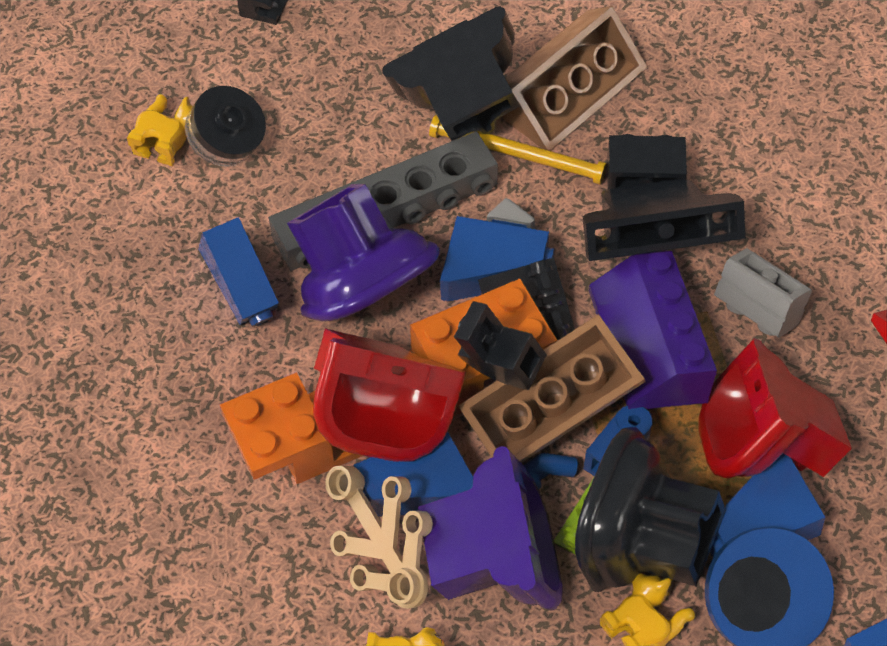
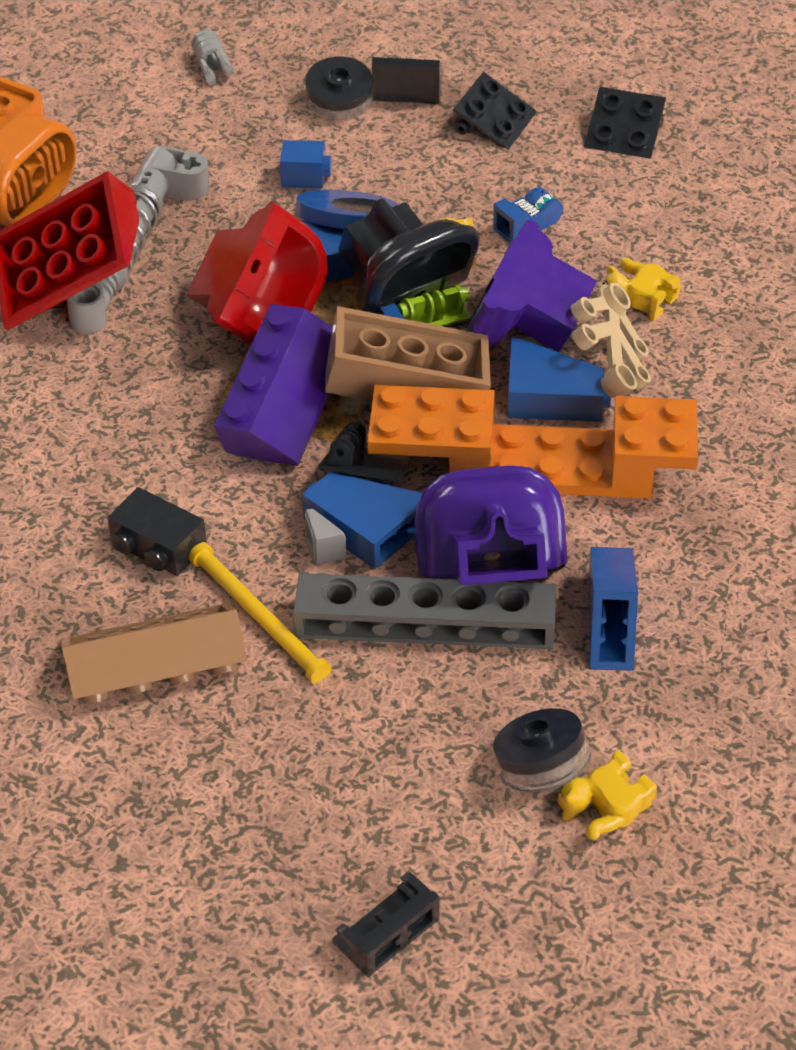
camera: 150 degrees left, 10 degrees down
(382, 398) = (551, 400): red piece -> none
(460, 74) = (272, 652): black piece -> none
(497, 350) = (438, 363): black brick -> none
(661, 219) = (202, 455): black brick -> none
(762, 293) = (164, 380): light grey brick -> none

